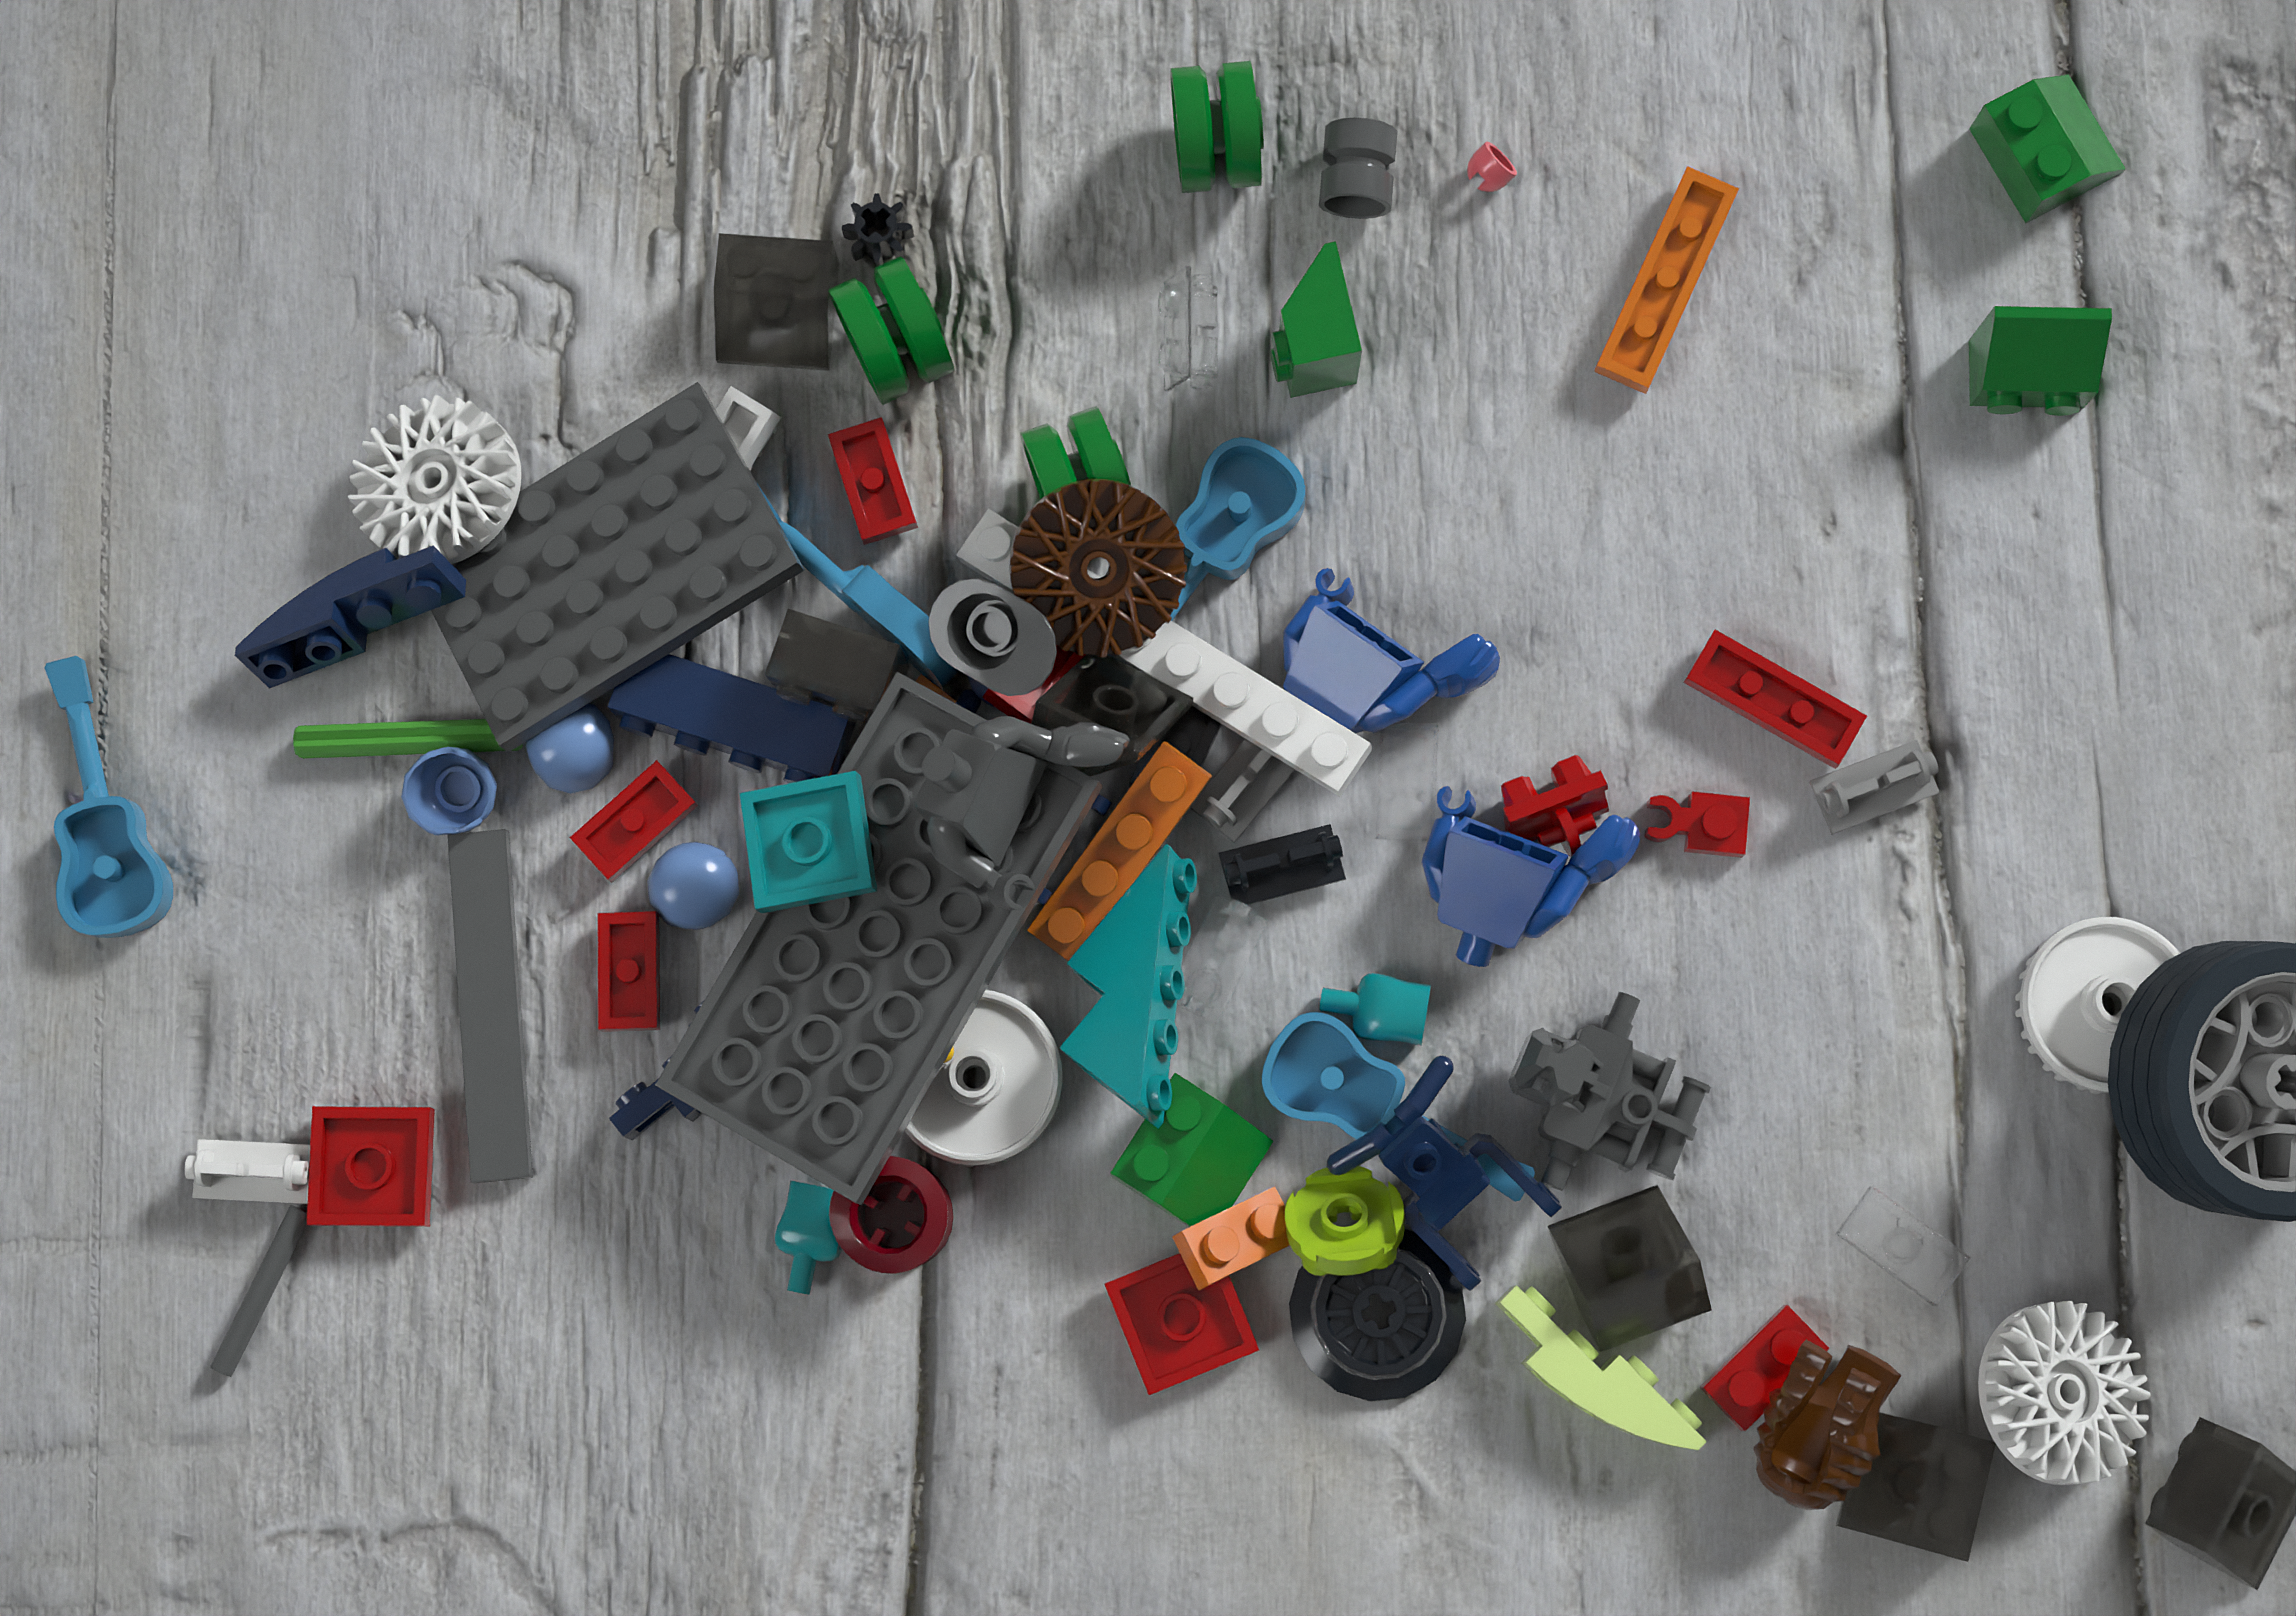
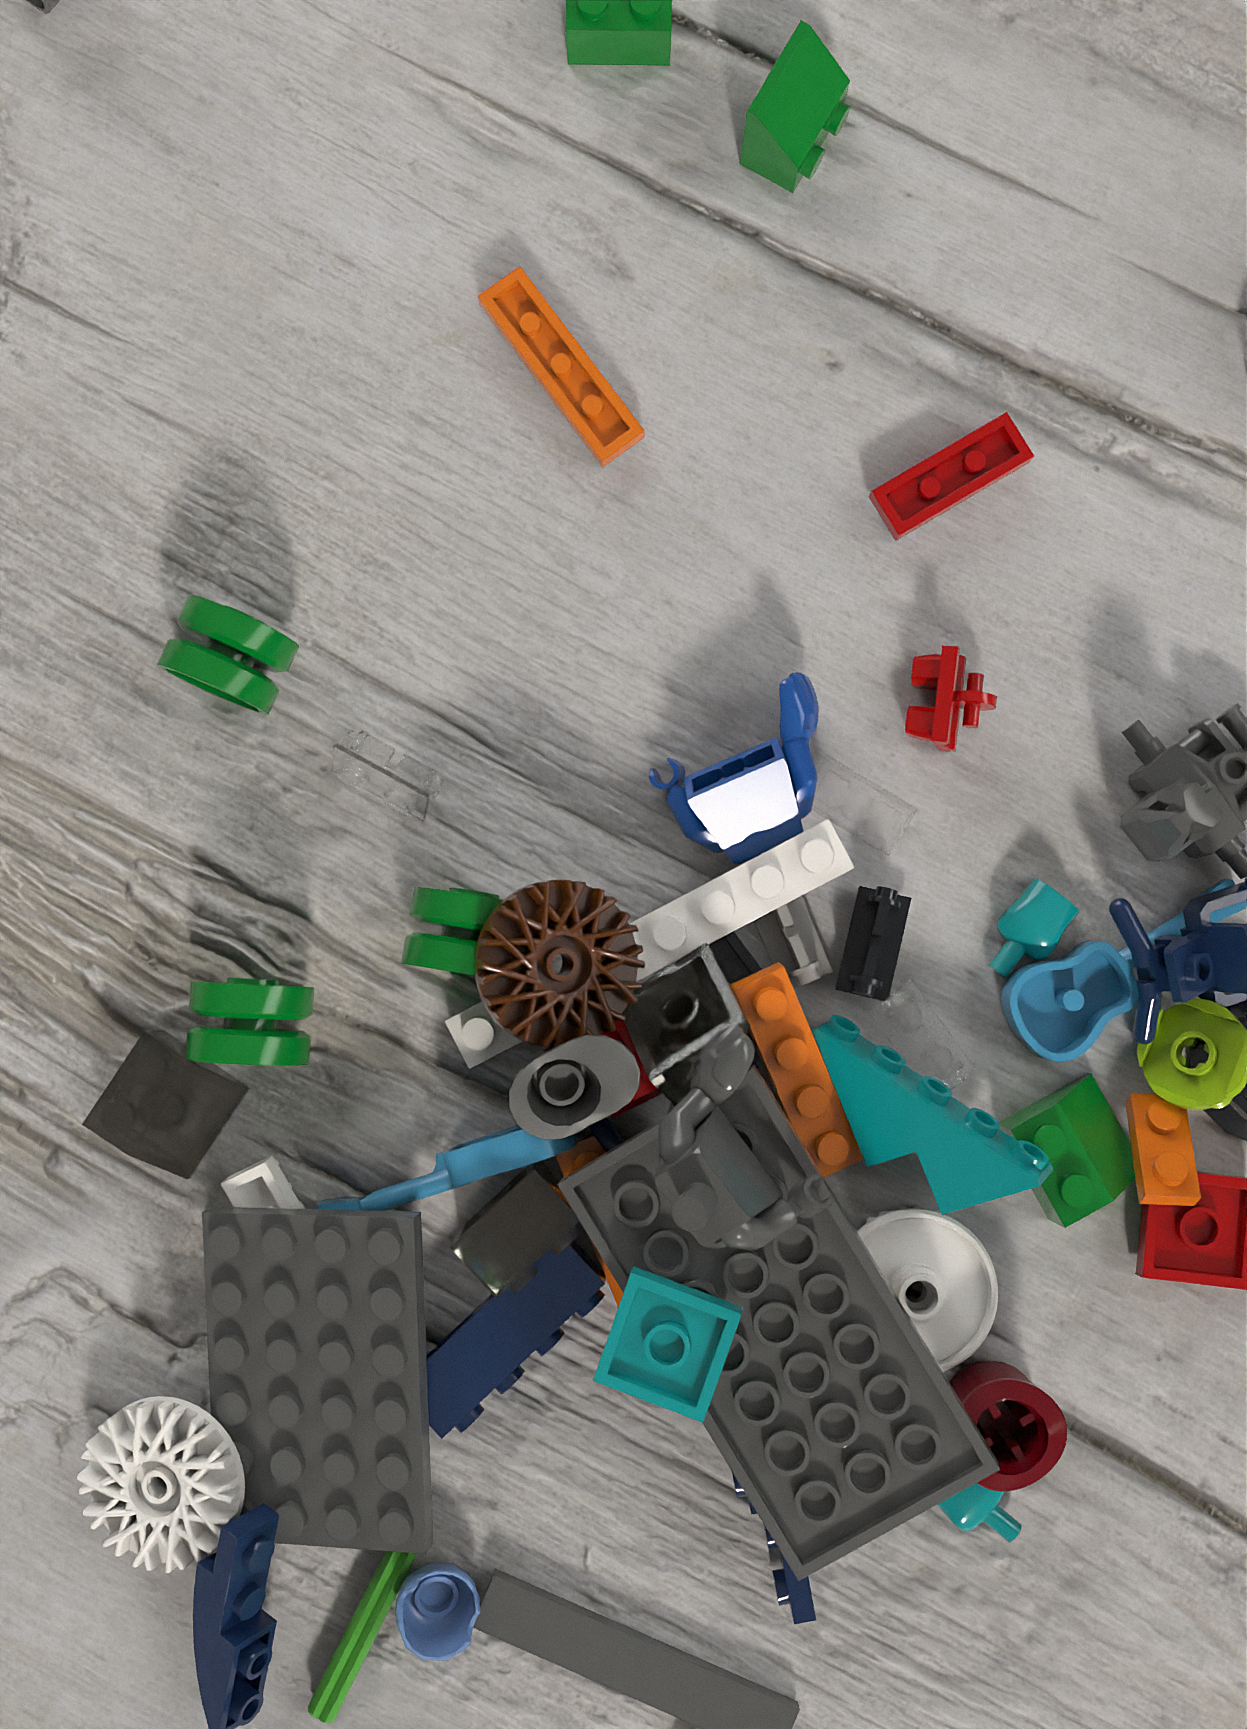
camera: 65 degrees left, 5 degrees up
(574, 751) = (460, 1479): medium blue hair -> none
(628, 971) = (672, 1533): red plate -> none
(633, 821) = (547, 1462): red plate -> none
(693, 886) = (627, 1439): medium blue hair -> none
(872, 481) = (367, 1104): red plate -> none
(879, 216) = (164, 995): black gear -> none
(1242, 504) = (556, 808): dark azure piece -> none
(1317, 331) = (452, 666): green slope -> none
(1358, 164) = (322, 556): dark grey wheel -> none
(1492, 167) = (386, 452): coral hinge -> none
(1508, 886) = (994, 774): blue torso -> none
(1710, 823) = (1019, 586): red plate -> none
(1876, 786) = (1061, 437): light grey hinge -> none

